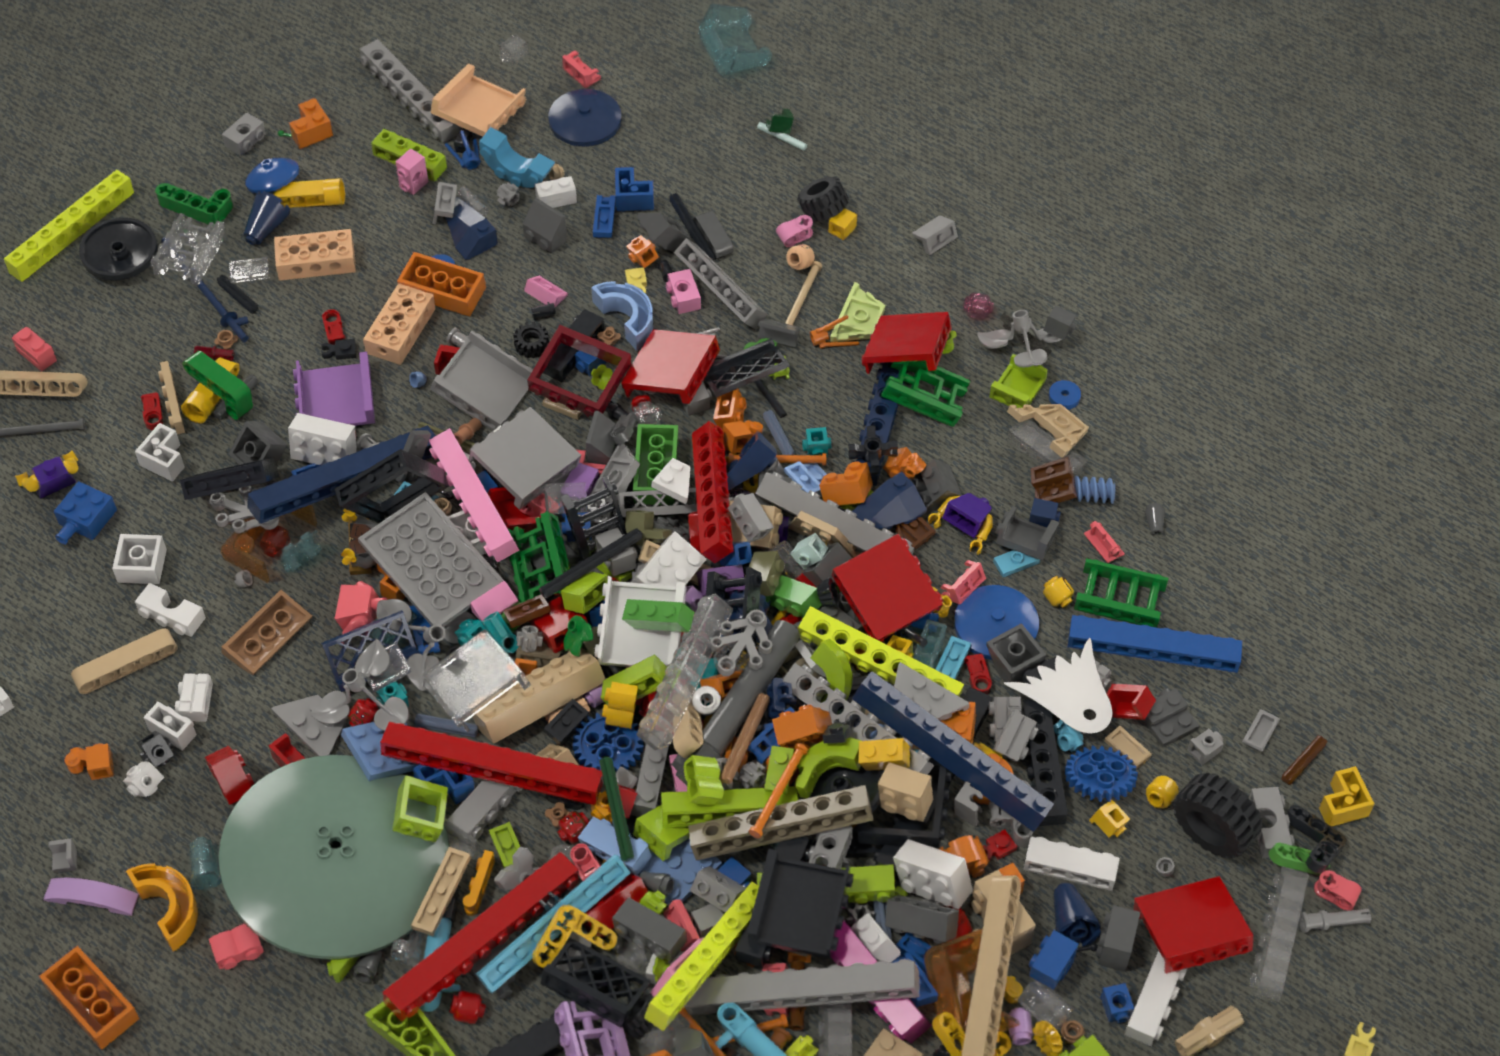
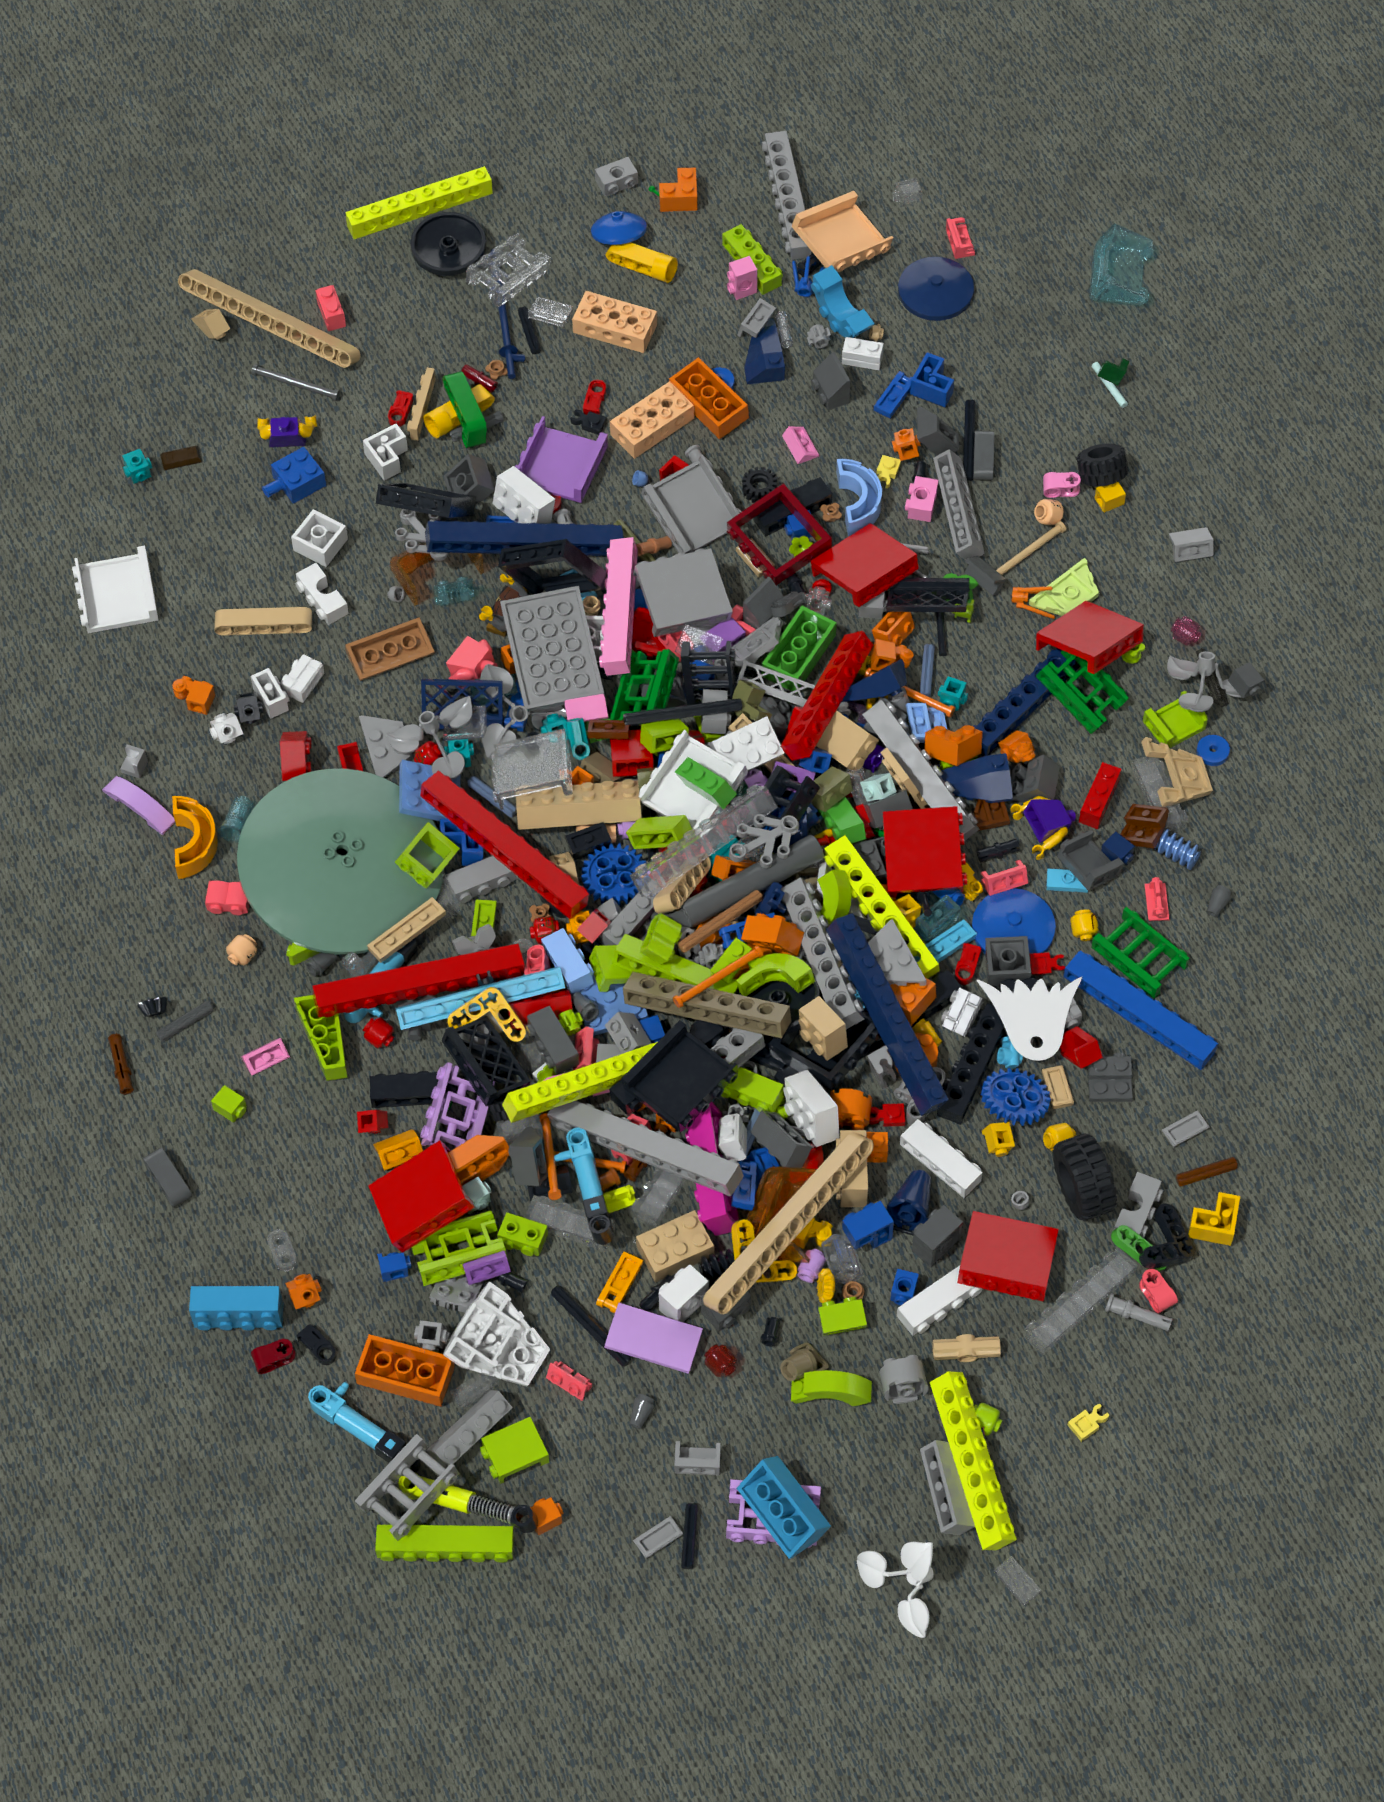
camera: 30 degrees right, 5 degrees up
(89, 997) = (95, 883): orange brick -> none
(194, 205) = (545, 239): green beam -> none
(264, 217) = (588, 267): dark blue cone -> none
(274, 541) = (437, 572): clear red head -> none
(279, 992) = (241, 949): none -> light nougat head
(416, 445) = (596, 541): dark grey hinge -> none
(479, 883) = (444, 939): light orange plate -> none
(529, 638) = (597, 754): light grey gear -> none
(544, 310) = (786, 462): black pin -> none
(577, 632) = (637, 767): green plate -> none
(616, 809) = (581, 929): dark green axle -> none
(620, 705) = (637, 845): yellow brick -> none
(674, 480) = (800, 670): white wing -> none
(714, 700) = (705, 868): white head -> none
(750, 517) = (842, 733): light grey brick -> none
(828, 593) = (871, 831): black piece -> none
(837, 732) = (796, 952): black plate -> none
(873, 450) = (994, 715): black pin -> none
(877, 753) = (817, 984): yellow brick -> none
(941, 561) = (998, 850): none -> black pin
(998, 474) = (1100, 795): none -> red brick
(1015, 736) = (957, 1029): light grey brick -> none
(1048, 641) = (1042, 963): none -> red plate
(1205, 746) = (1121, 1122): light grey brick -> none

